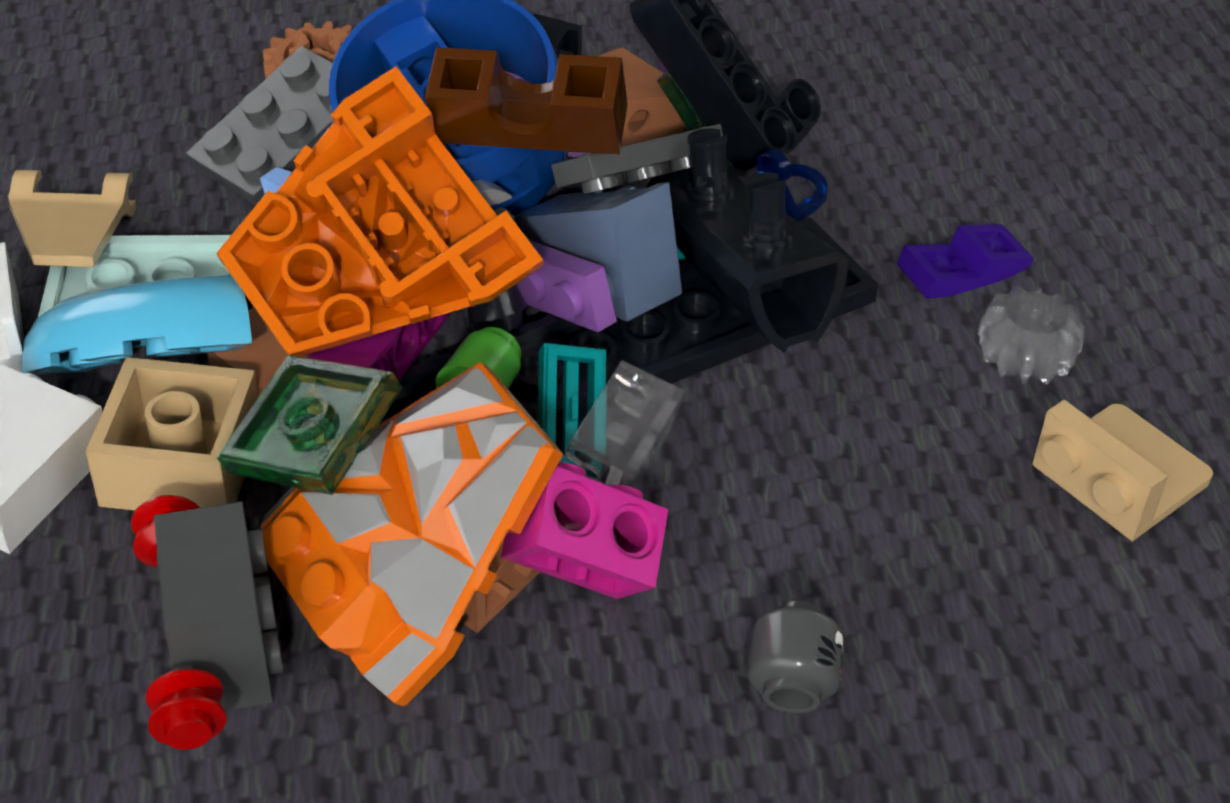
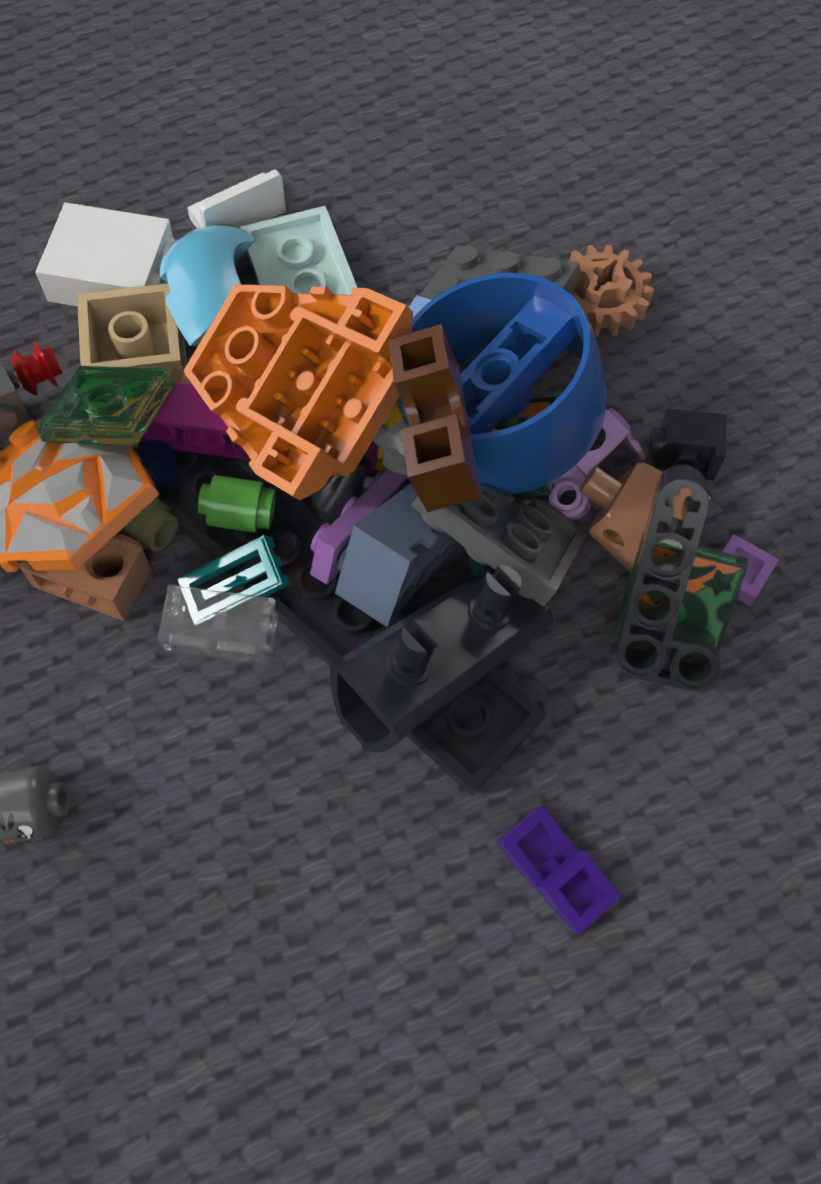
camera: 75 degrees right, 20 degrees up
(68, 226) = (343, 204): tan flag -> none
(584, 544) = (68, 623): dark pink brick -> none
(776, 162) = (583, 665): clear blue piece -> none
(1031, 334) = (465, 962): clear gear -> none
(1118, 466) = (304, 1053): tan bracket -> none

